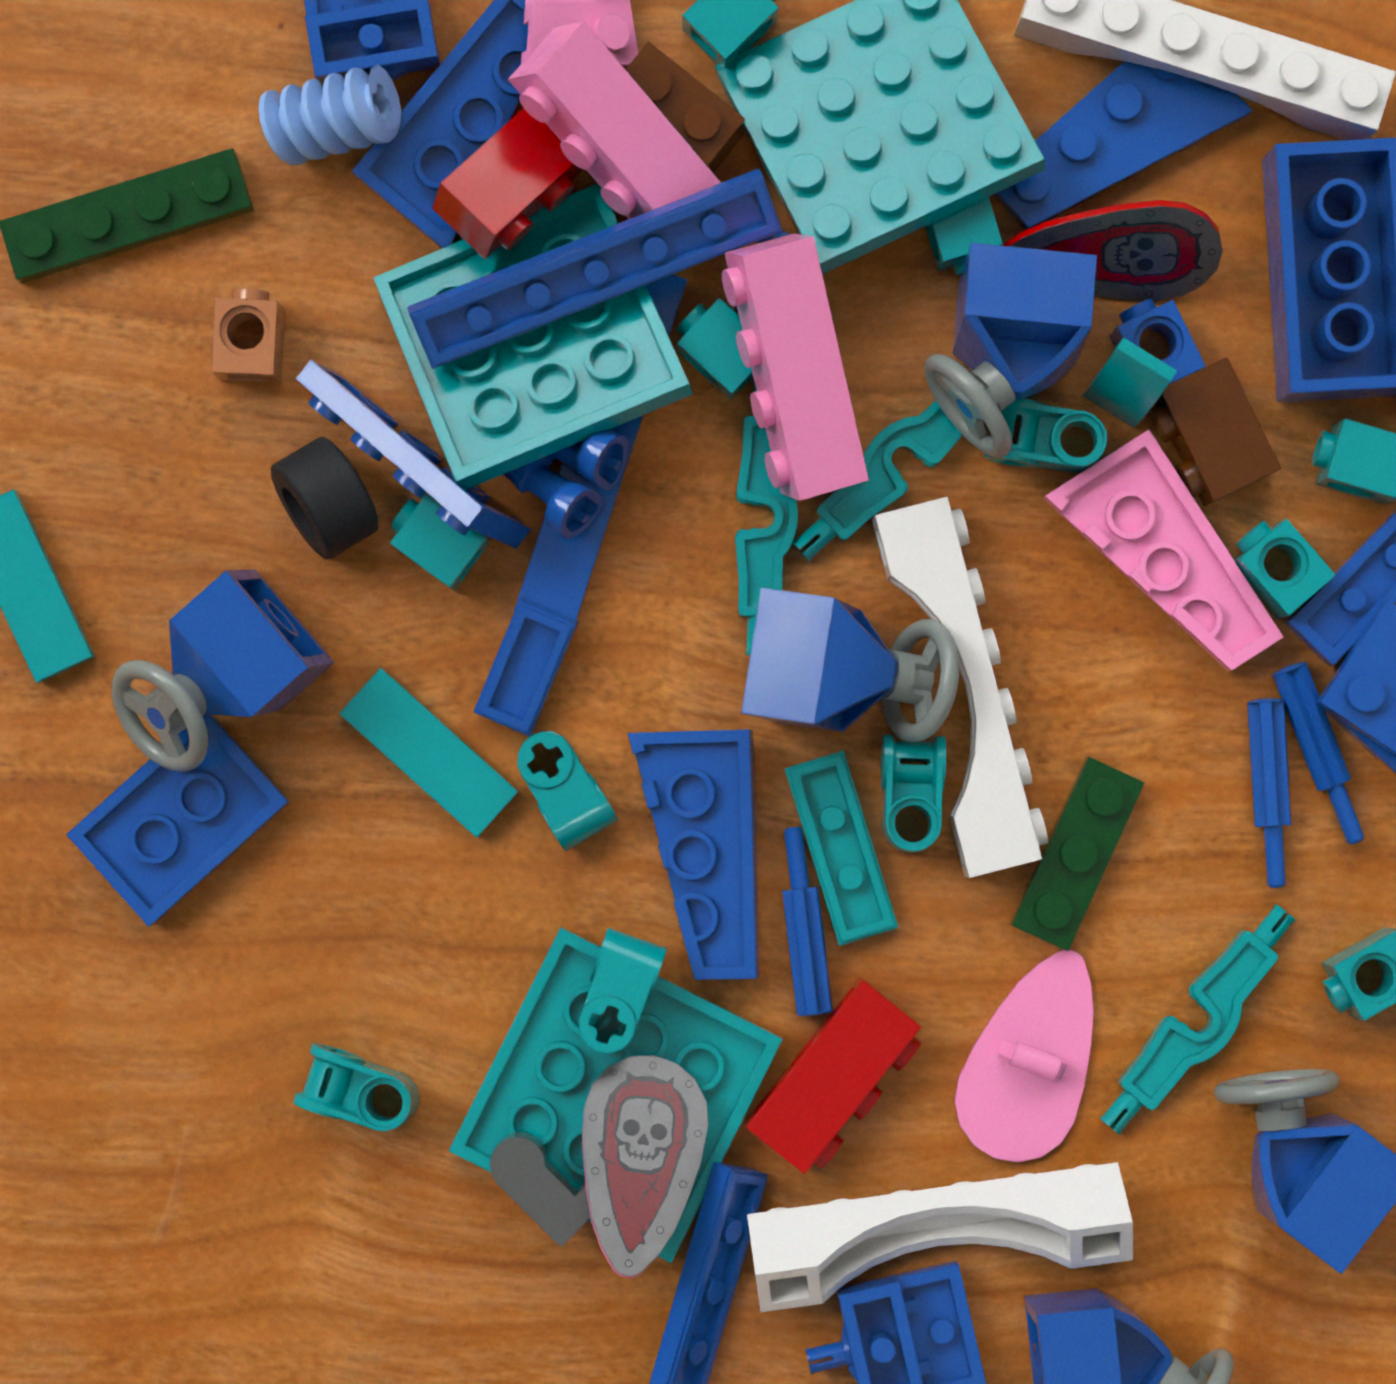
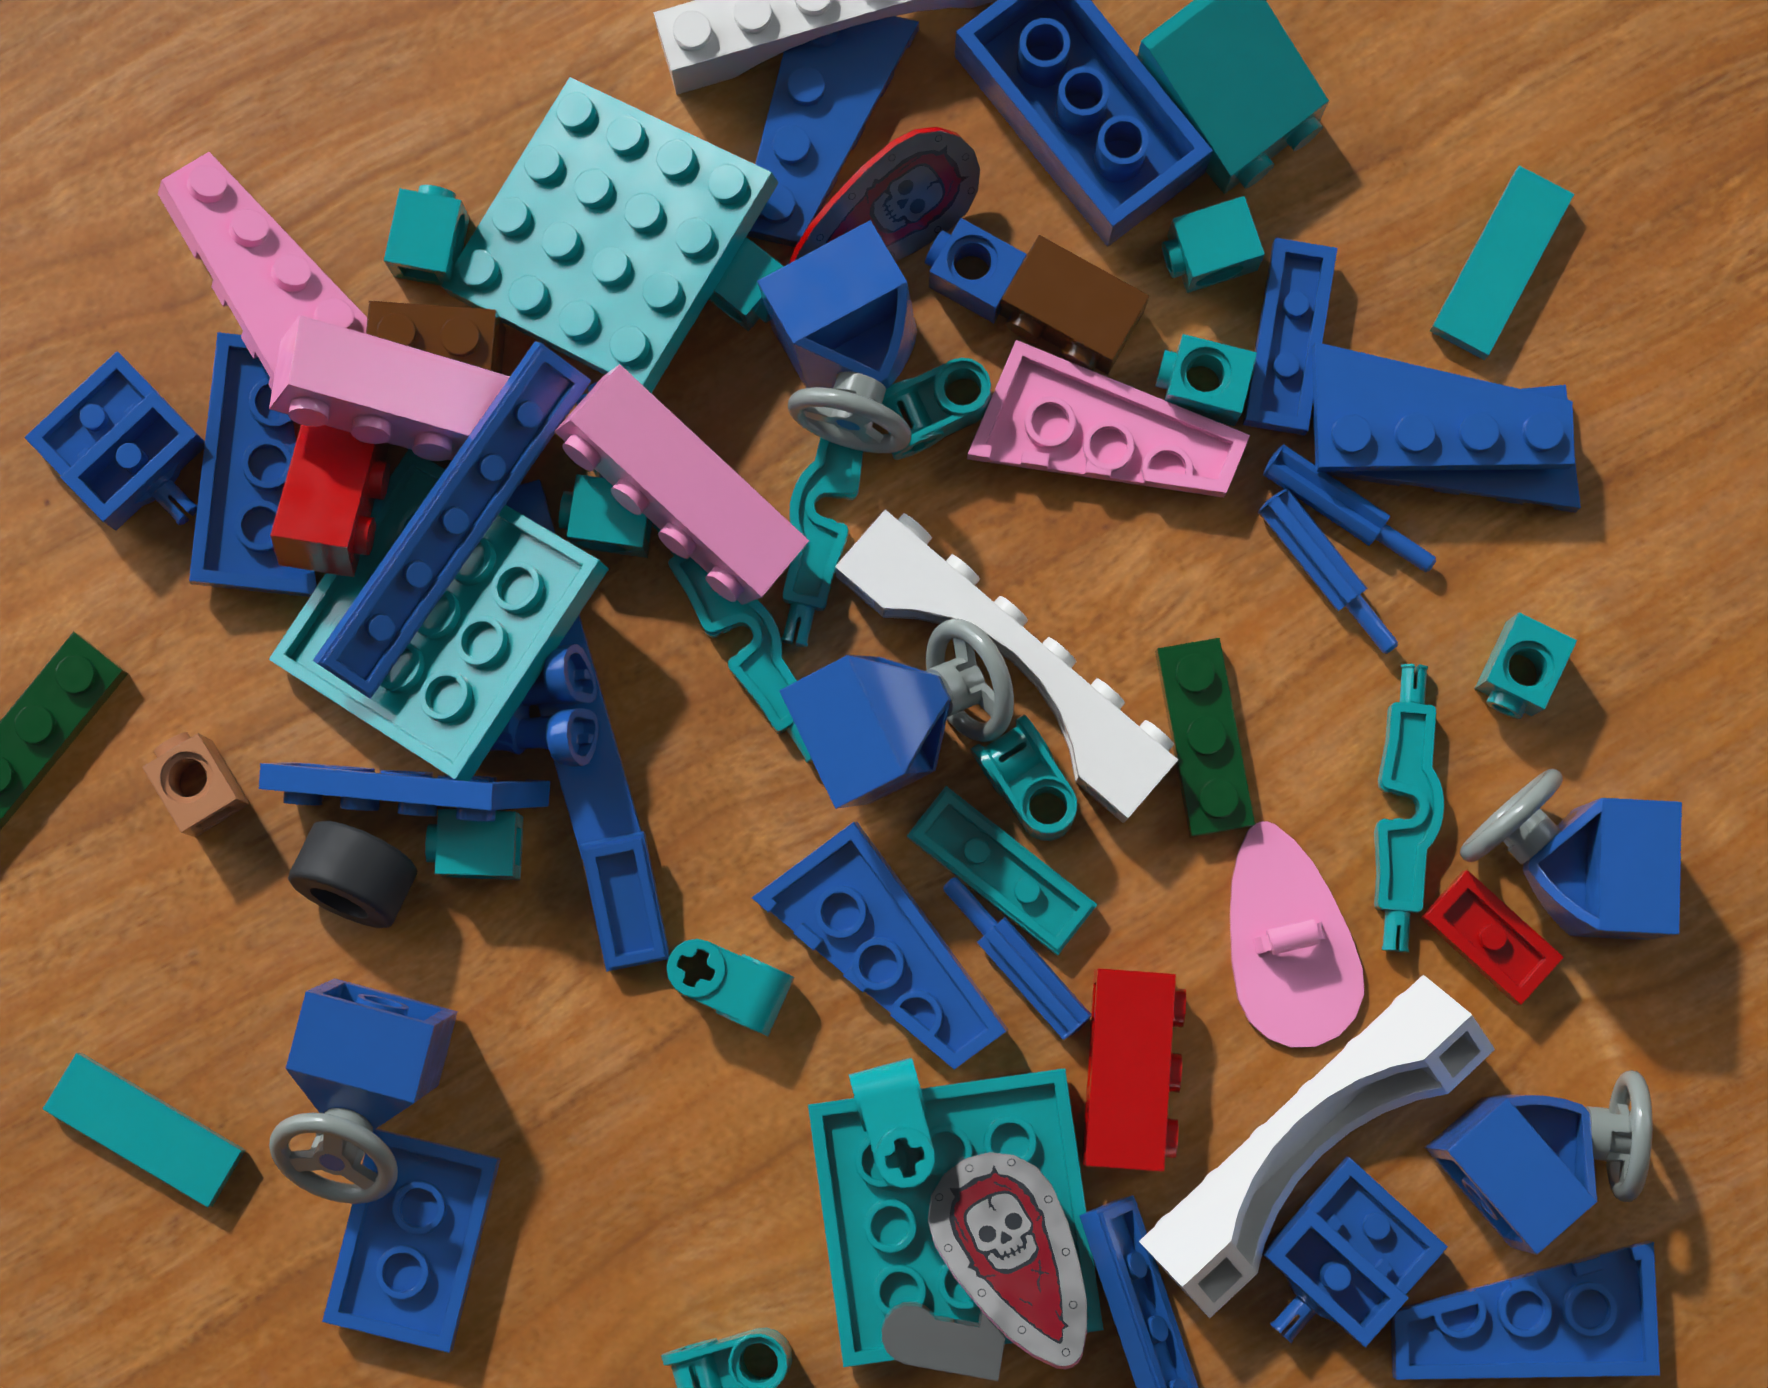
camera: 30 degrees left, 5 degrees down
(330, 115) = (139, 545): light blue piece -> none
(429, 752) = (592, 1032): teal tile -> none
(1129, 383) = (972, 310): teal slope -> none
(1193, 1170) = (1492, 937): none -> red plate

